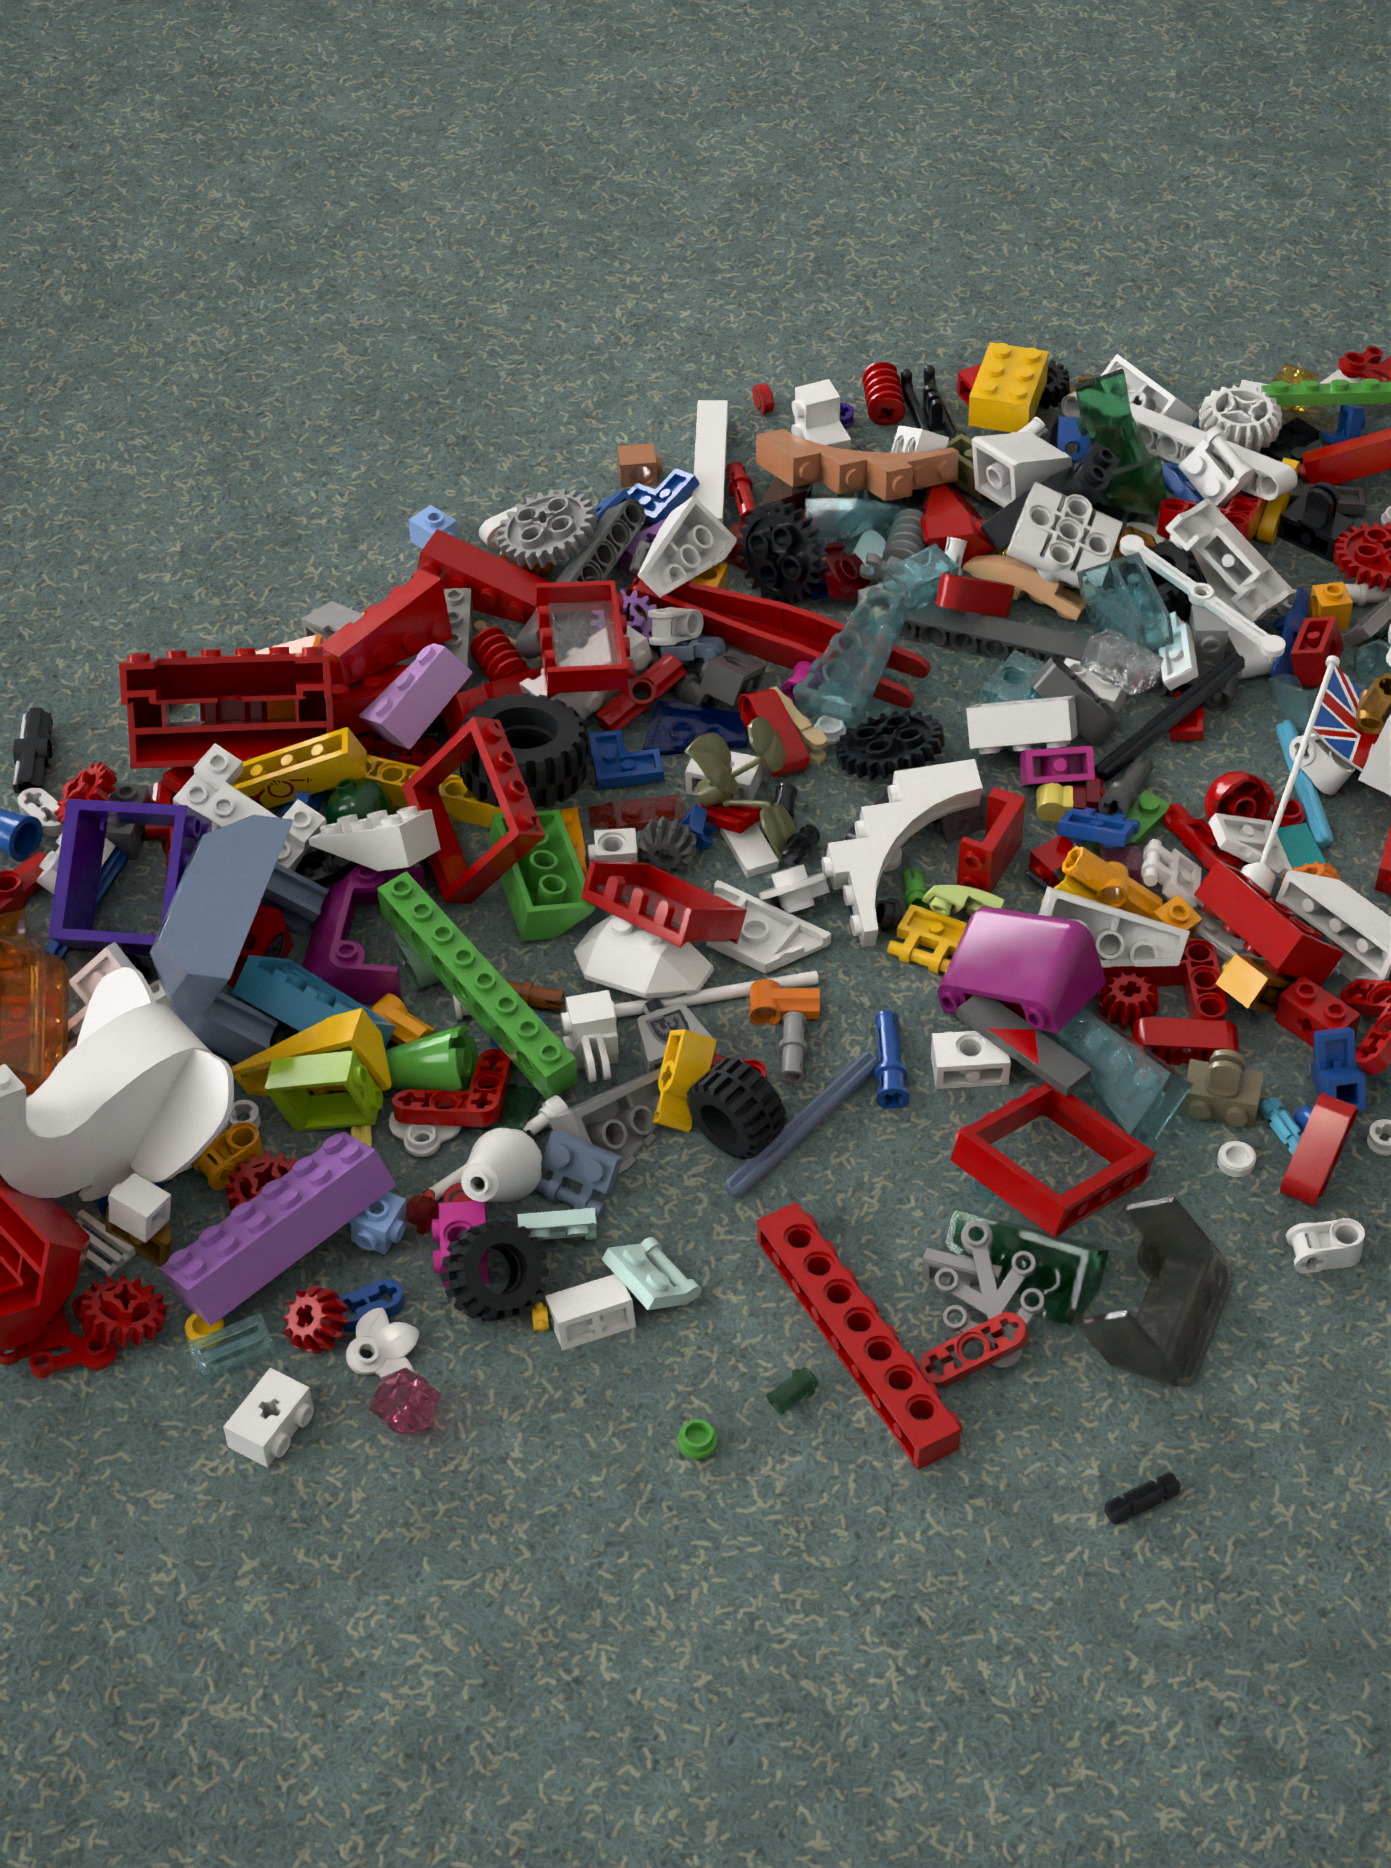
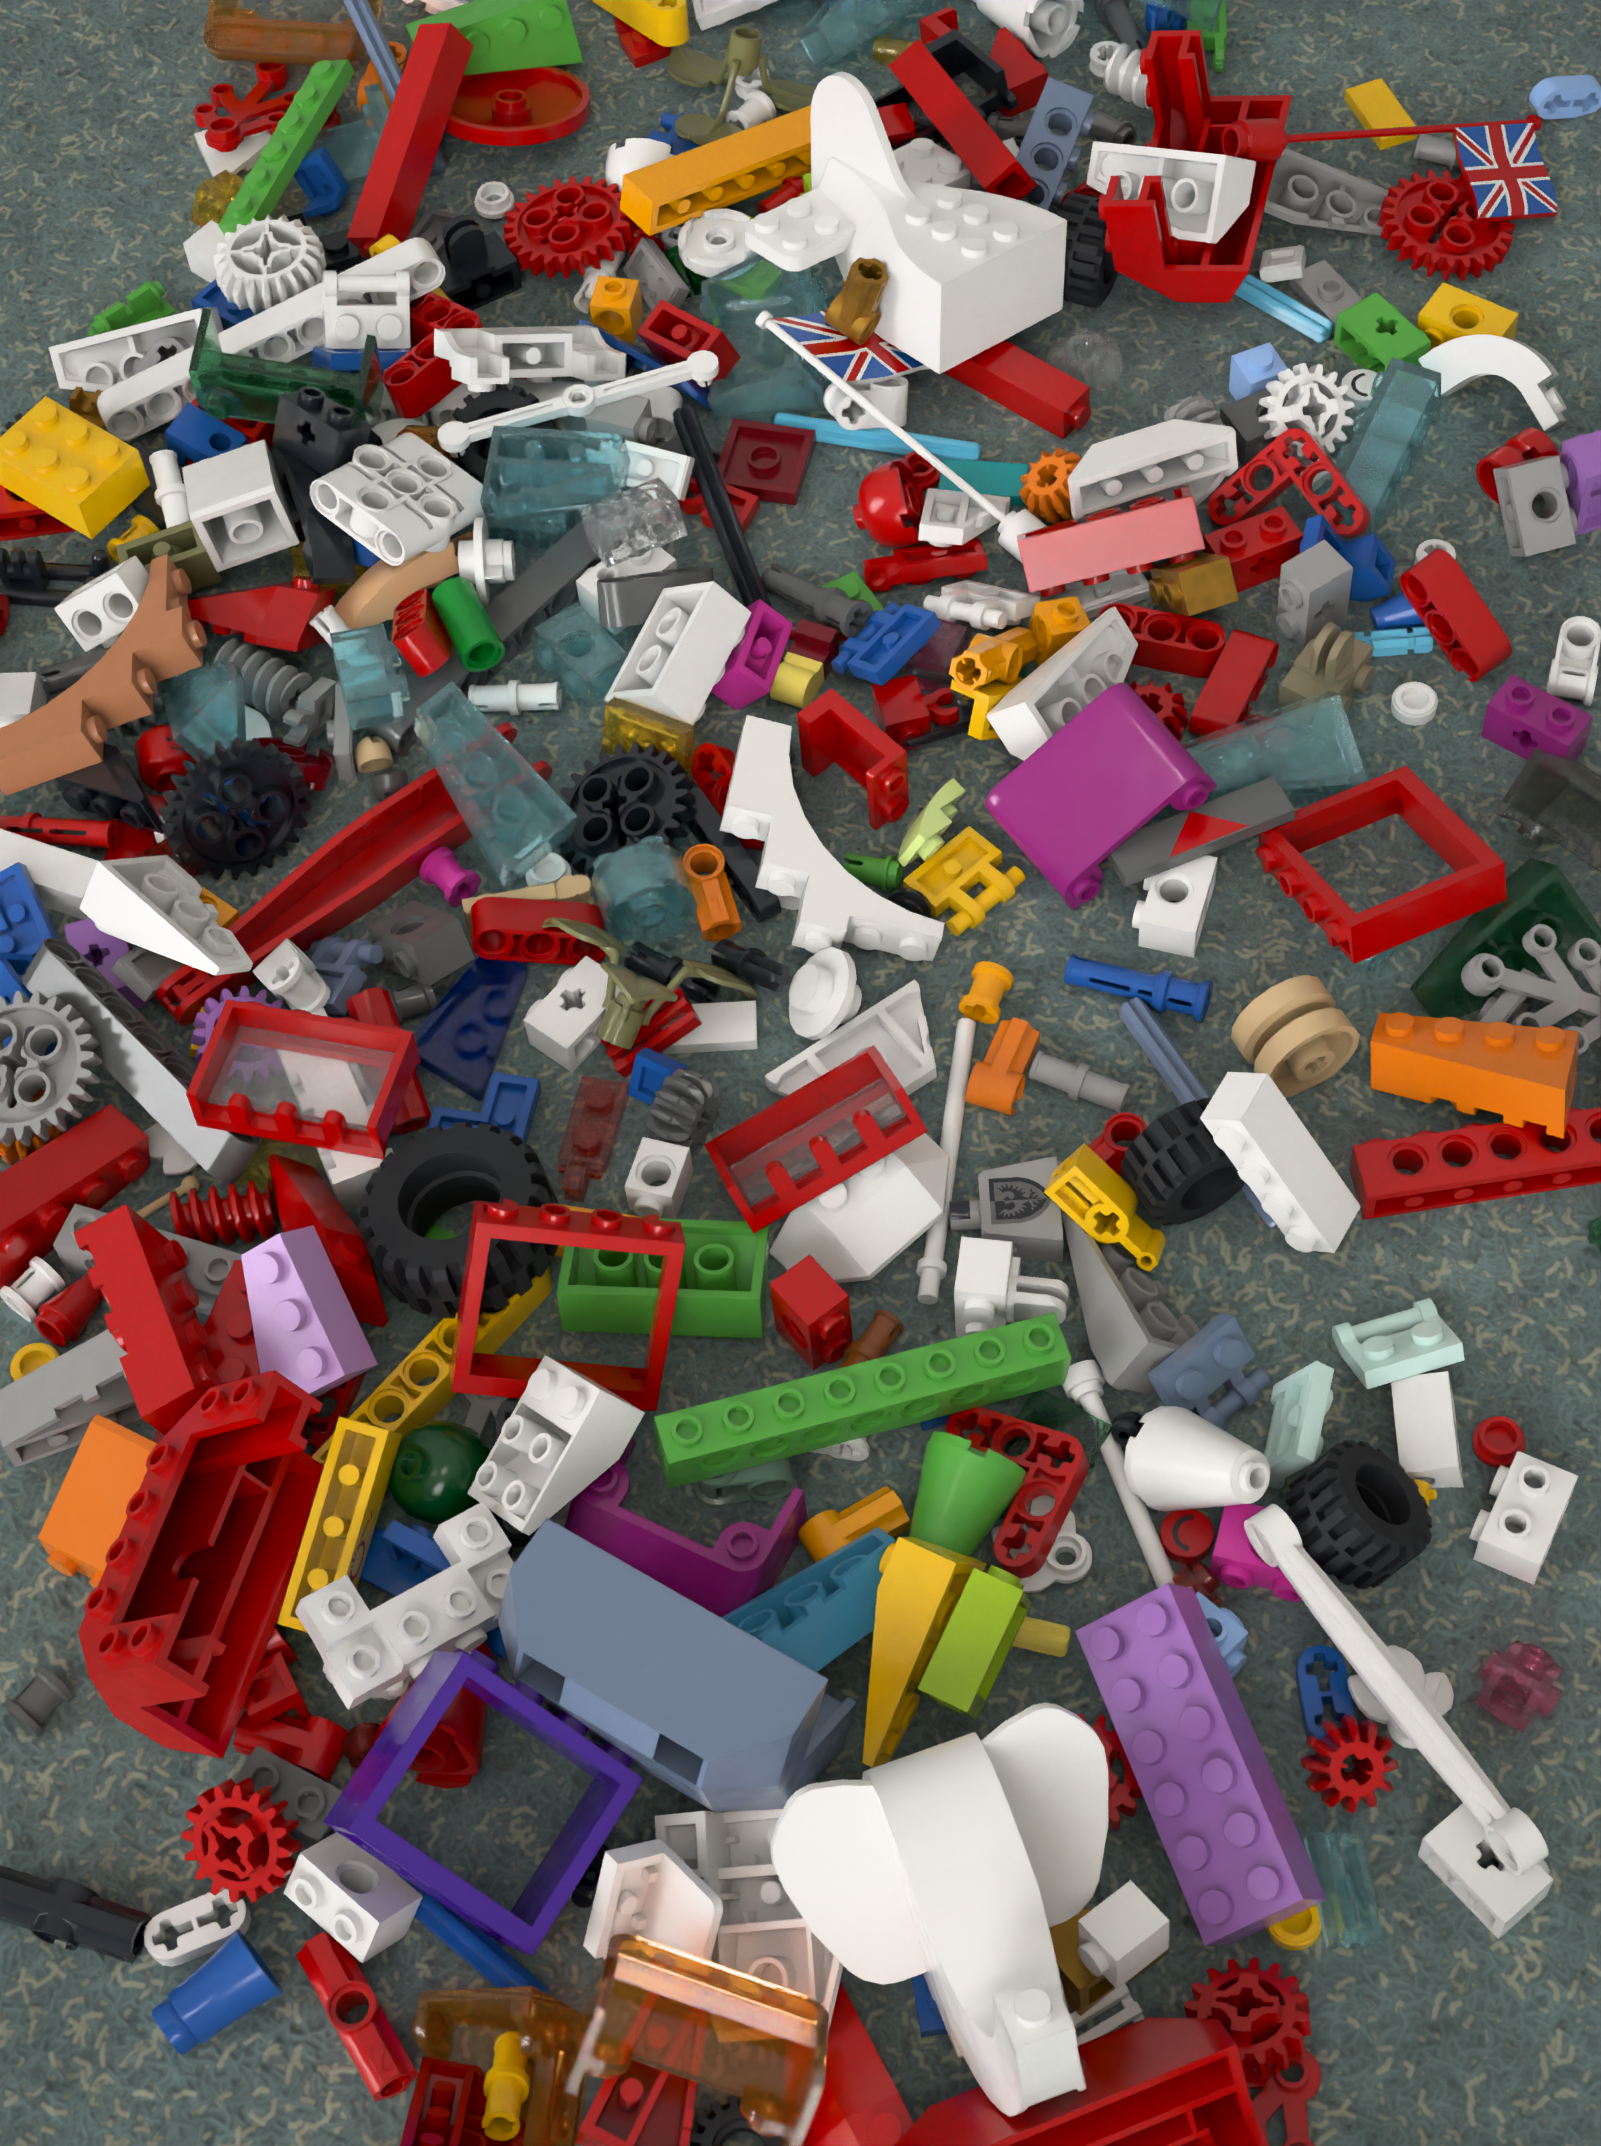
camera: 65 degrees left, 10 degrees up
(278, 1403) = (1507, 1830): none -> white piece
(538, 947) = (812, 1313): none -> red brick
(541, 1381) = (1524, 1516): none -> white brick
(601, 1357) = (1497, 1441): none -> red plate
(742, 1145) = (1280, 1161): none -> white brick
(826, 770) = (643, 891): none -> clear light blue brick
(841, 976) = (986, 992): none -> light orange bush
(842, 815) = (716, 907): none -> orange piece
(873, 1144) = (1295, 1034): none -> tan wheel
(896, 1261) = (1478, 1066): none -> orange wedge
(956, 733) = (632, 723): none -> clear yellow bracket
(963, 667) = (516, 697): none -> white pin
(991, 612) = (468, 624): none -> green pin
(1051, 603) = (486, 560): none -> white piece
(1186, 387) = (143, 306): none -> bright green hinge
(1243, 728) = (767, 459): none -> dark red plate
(1247, 1230) = (1530, 718): none -> magenta brick
(1287, 1056) = (1313, 592): none -> light grey brick

